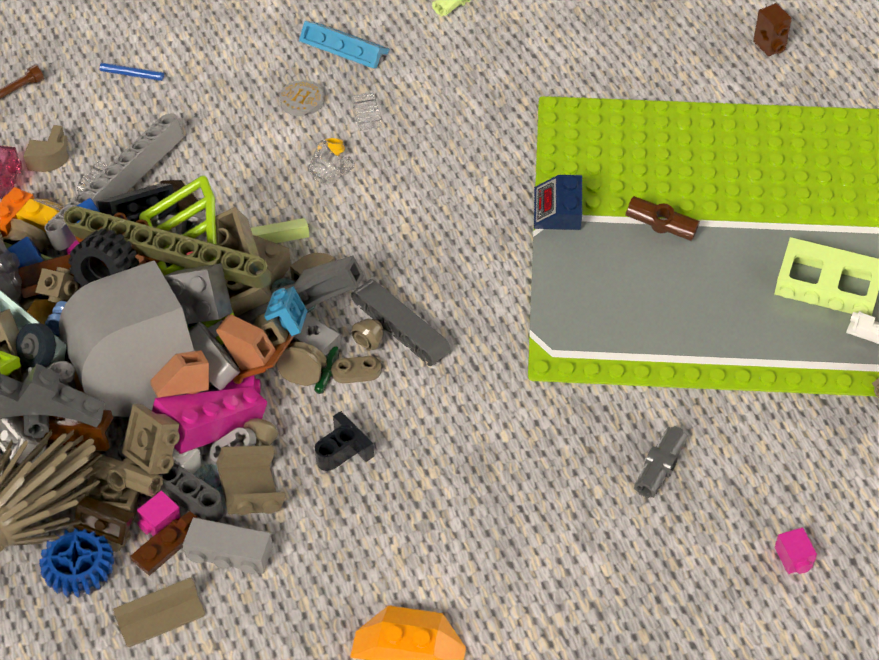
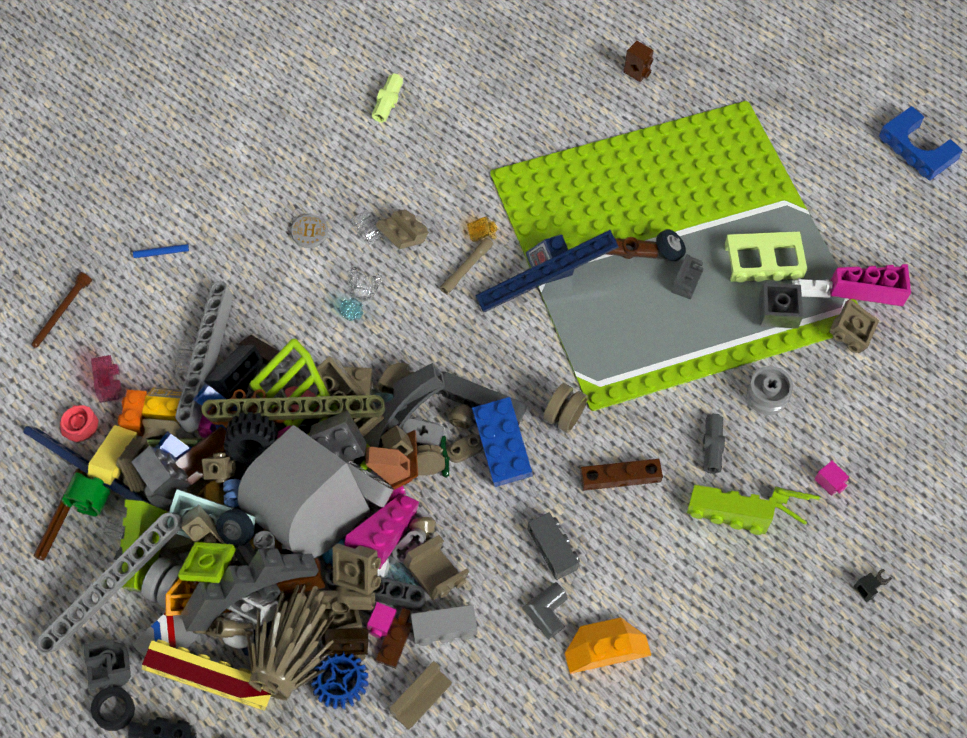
camera: 25 degrees left, 10 degrees up
(47, 155) = (135, 349): dark tan brick -> none
(182, 375) = (357, 509): nougat slope -> none
(283, 231) = (353, 351): yellowish green slope -> none
(289, 308) = (402, 423): dark azure bracket -> none
(303, 186) = (351, 309): none -> clear light blue gear
(335, 145) = (358, 263): yellow plate -> none
(339, 450) = (484, 517): black tile -> none
(342, 44) = (318, 172): dark azure fence -> none
(355, 570) = (542, 607): none -> dark grey brick
(398, 372) = (502, 442): none -> blue brick
(404, 123) = (403, 229): none -> dark tan plate
(404, 506) = (553, 545): none -> dark grey brick
(436, 193) = (453, 280): none -> dark tan piece
(493, 360) = (565, 407): none -> dark tan wheel
(497, 149) = (482, 228): none -> clear yellow bracket
(527, 457) = (621, 474): none -> reddish brown piece
(546, 209) = (547, 271): none -> dark blue tile
(646, 540) = (732, 509): none -> lime wedge
(714, 229) = (670, 245): none -> black wheel
(718, 549) = (782, 497): none -> lime plant
(719, 270) = (687, 277): none -> dark grey hinge
(761, 424) = (769, 390): none -> light grey wheel
(821, 334) = (780, 305): none -> flat silver brick

